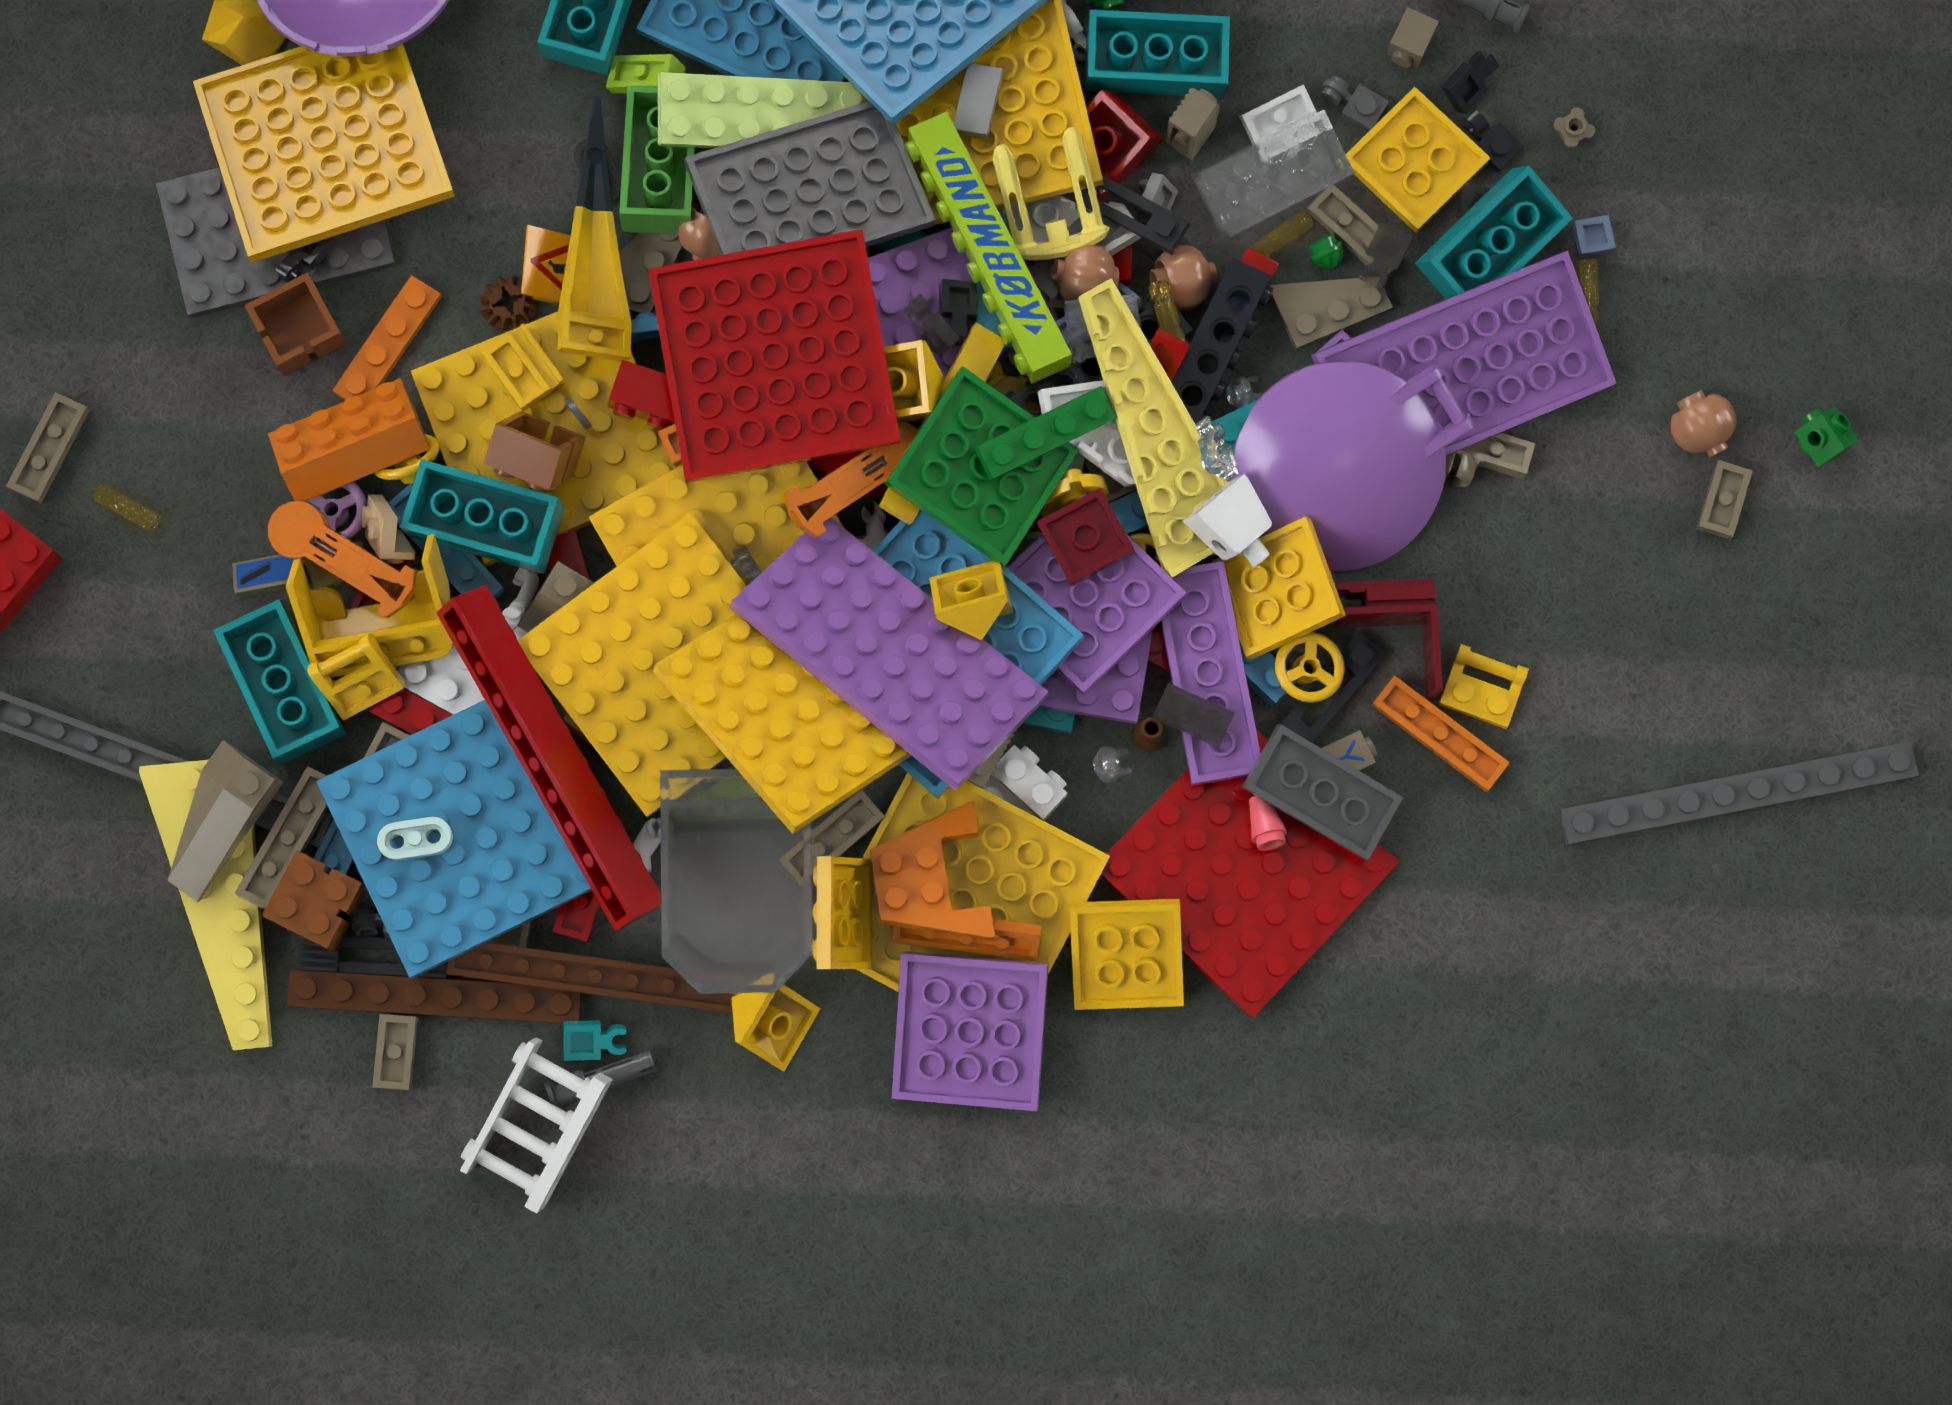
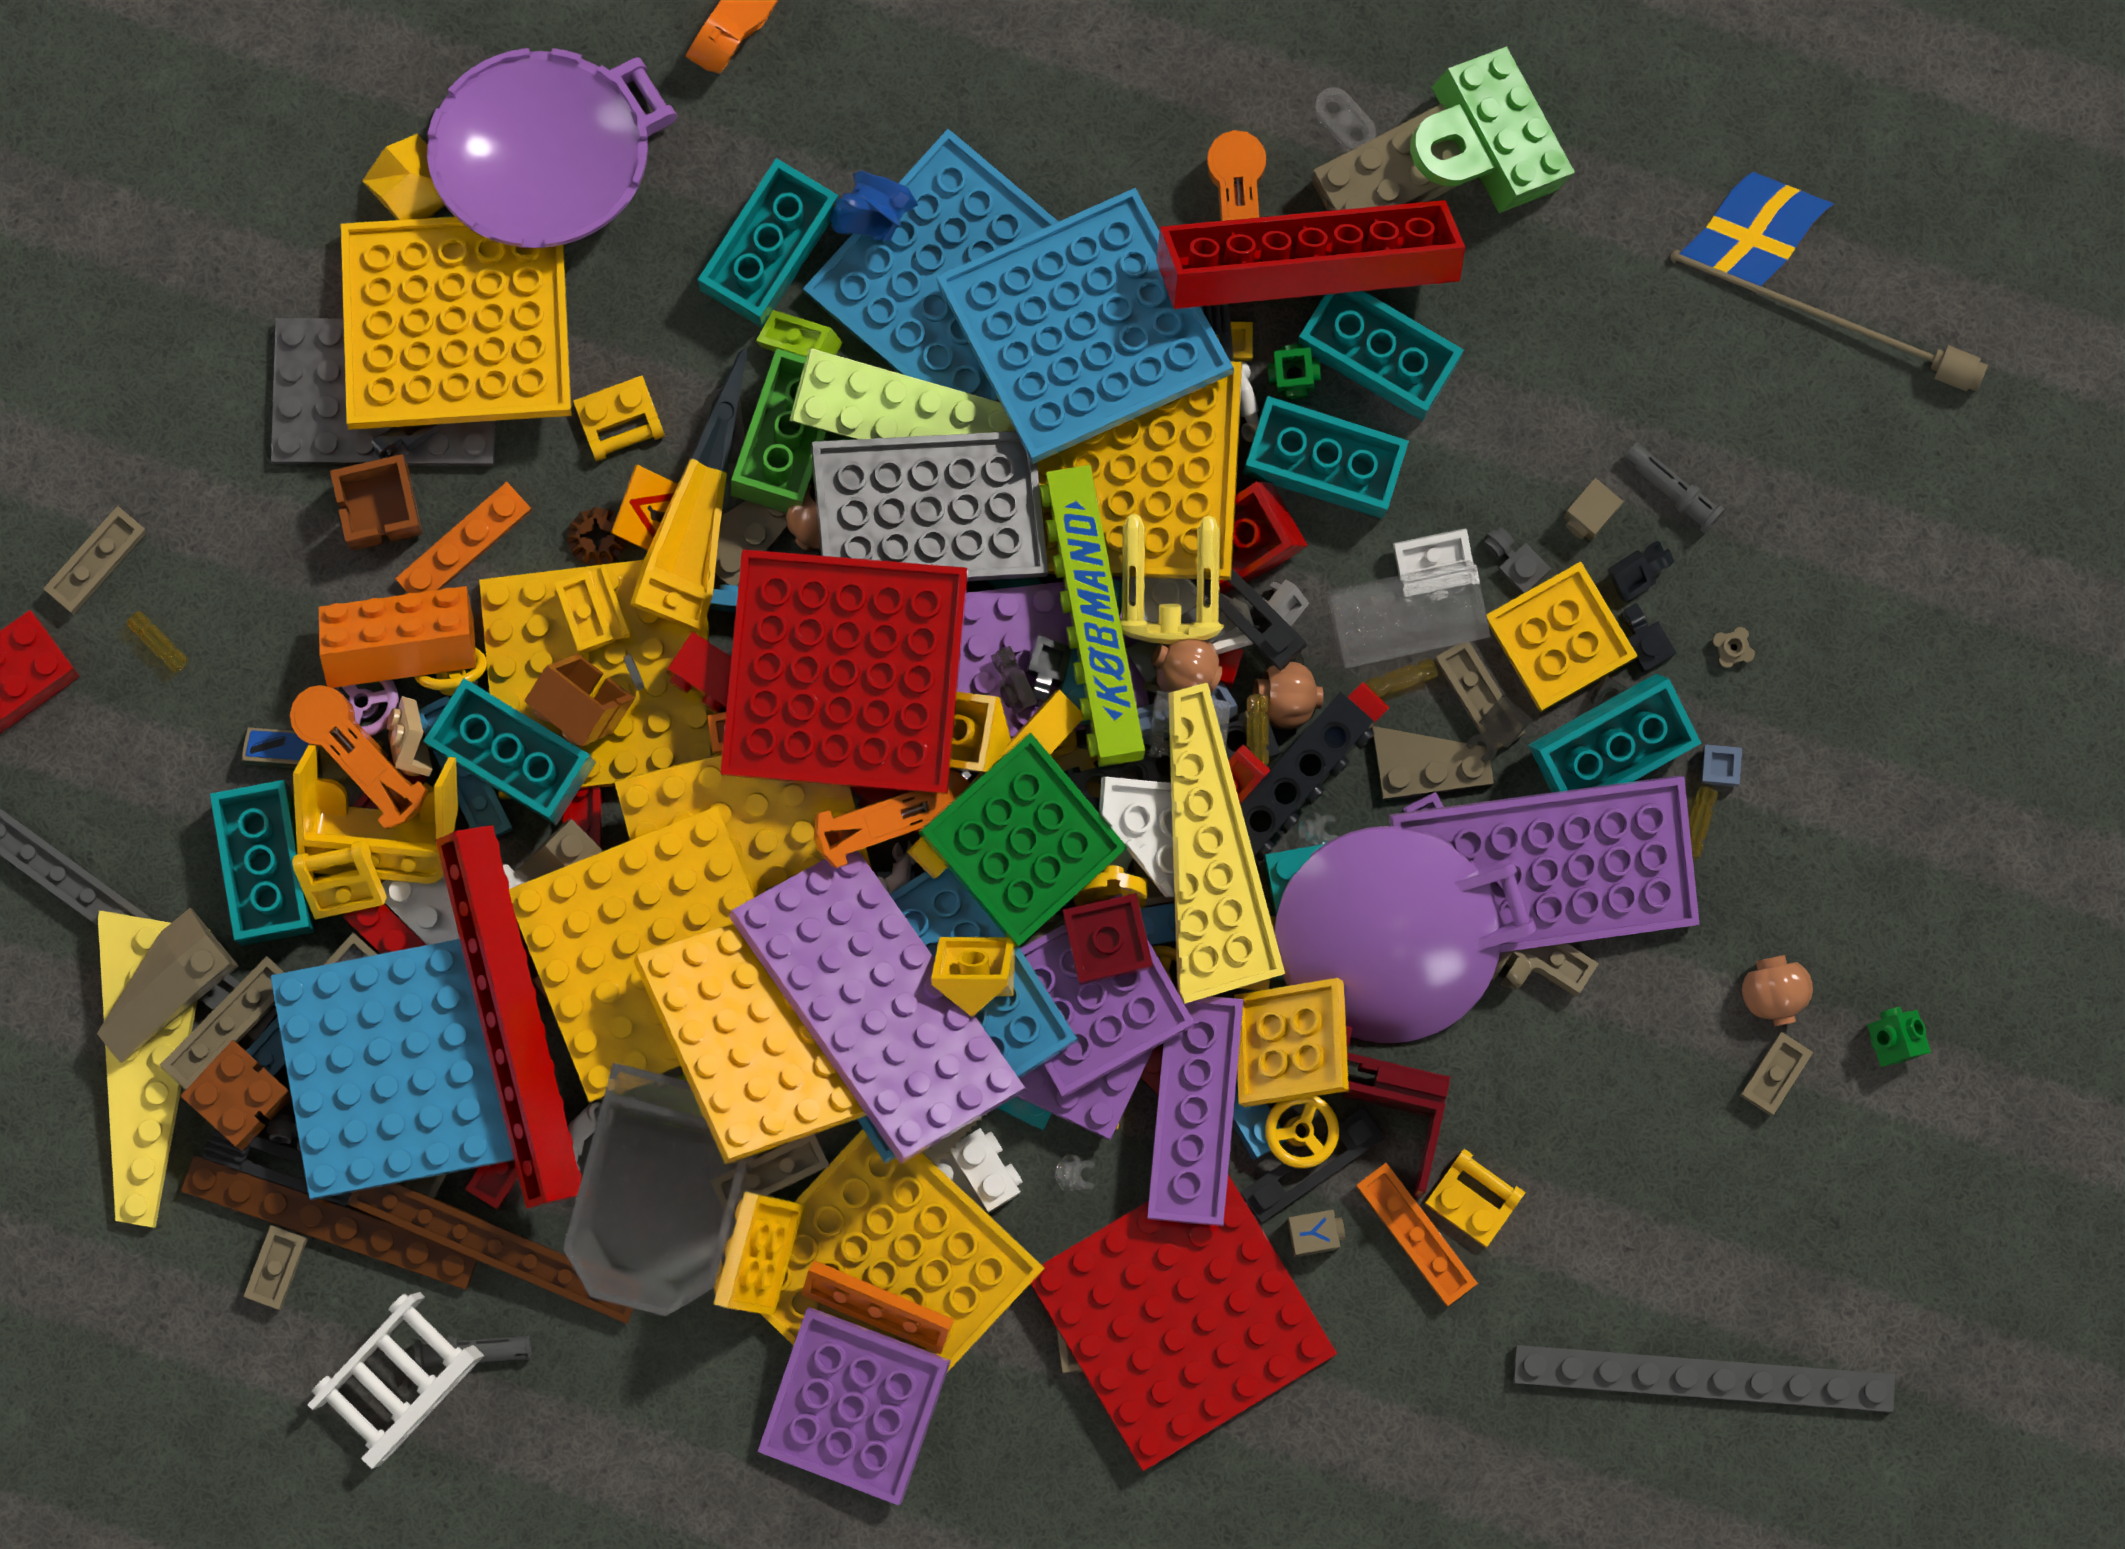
camera: 15 degrees right, 0 degrees up
(415, 837) = (353, 1061): light aqua plate -> none
(493, 182) = (615, 407): none -> yellow plate
(529, 583) = (523, 850): white arm -> none
(585, 1040) = (468, 1308): teal plate -> none
(744, 563) = (758, 872): clear smoke plate -> none
(772, 1023) = (659, 1345): yellow slope -> none
(914, 880) = (838, 1241): orange wing -> none
(978, 100) = (1126, 460): light grey tile -> none
(1045, 433) = (1096, 823): green plate -> none
(1126, 954) = (1033, 1372): yellow plate -> none
(1148, 742) = (1117, 1163): reddish brown cone -> none
(1192, 122) = (1341, 539): dark tan brick -> none
(1193, 715) = (1167, 1149): clear smoke plate -> none
(1216, 454) = (1264, 889): clear plate -> none
(1232, 522) = (1262, 963): white torso -> none
(1266, 825) = (1210, 1279): coral cone -> none
(1322, 792) = (1276, 1262): dark grey plate -> none
(1326, 252) = (1442, 708): green plate -> none

